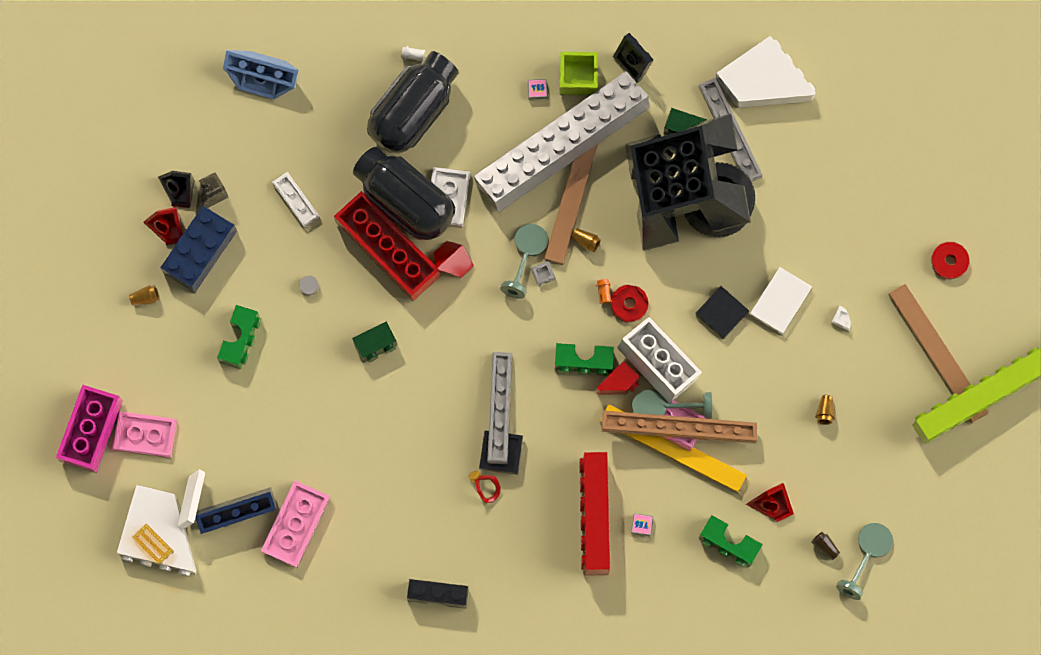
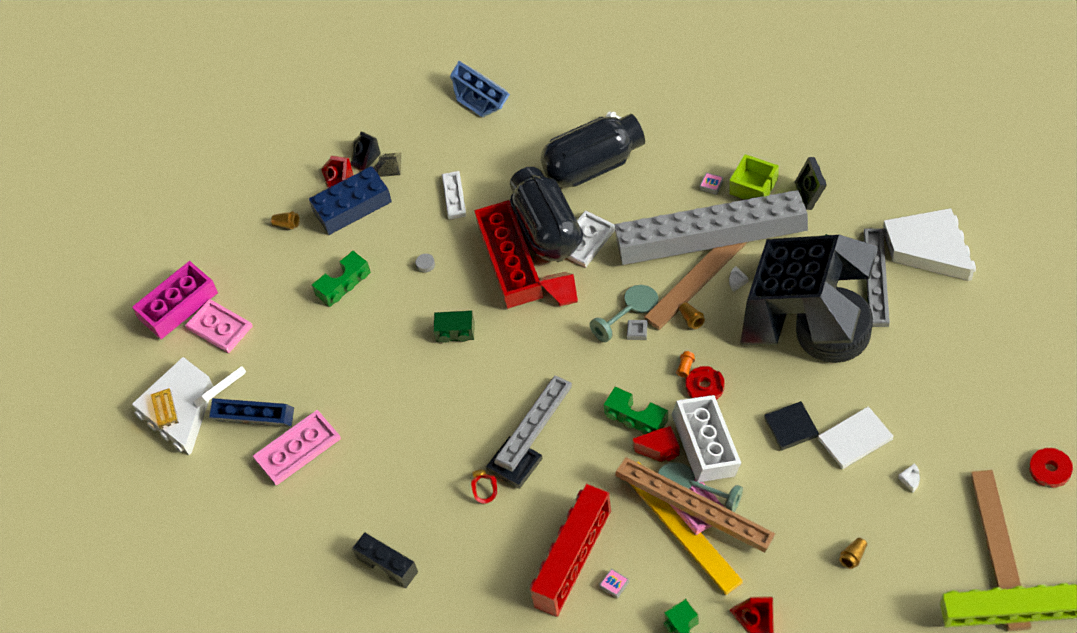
camera: 35 degrees right, 20 degrees down
(608, 183) = (737, 279): none -> white tile

